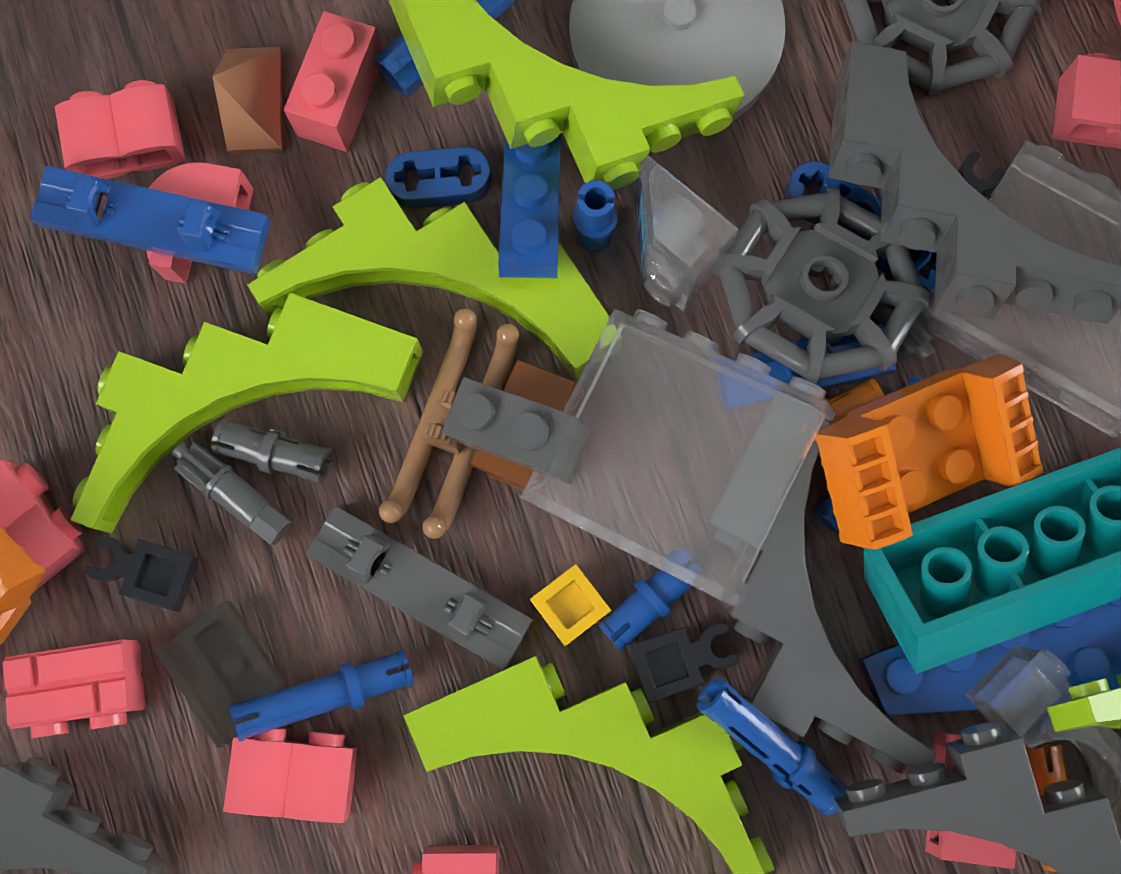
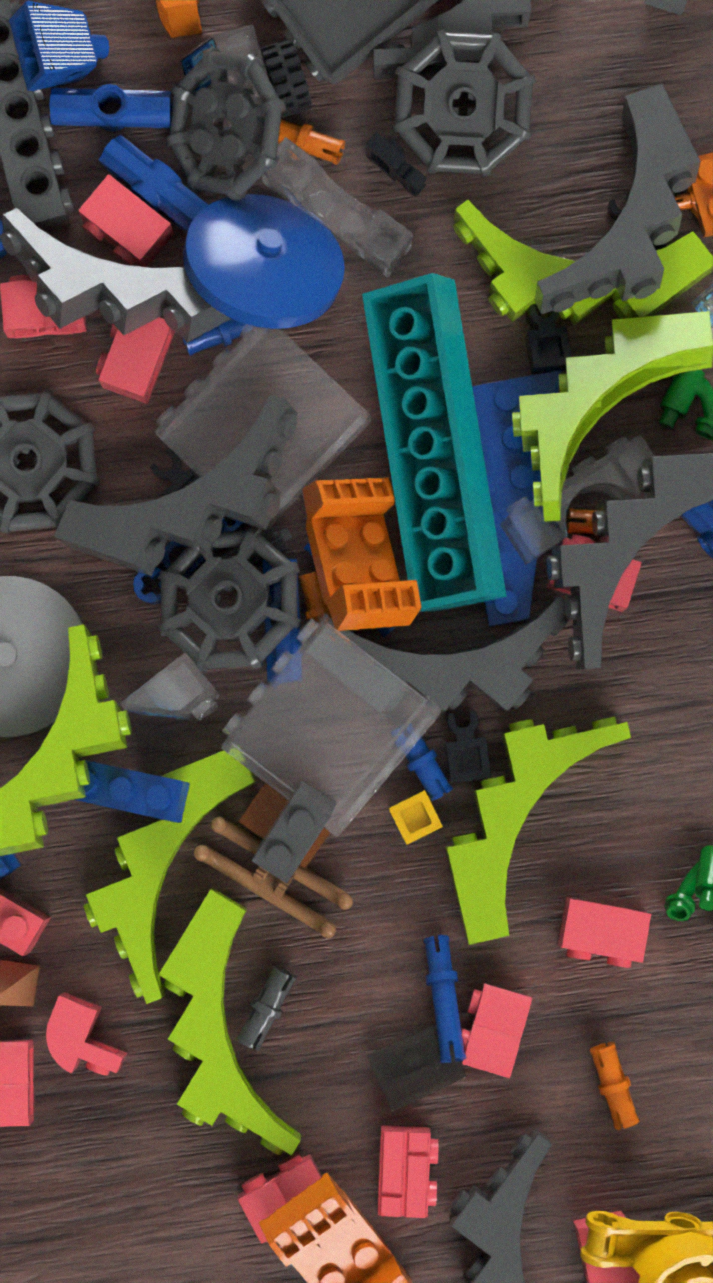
camera: 85 degrees left, 5 degrees up
(149, 574) = (337, 1107): black plate -> none
(151, 220) = (86, 1065): blue hinge -> none
(230, 491) = (289, 1042): dark grey piece -> none
(420, 588) = (382, 920): dark grey hinge -> none
(436, 165) = (97, 854): blue beam -> none
(595, 216) = (138, 742): blue pin -> none
(791, 762) = (547, 691): blue pin -> none

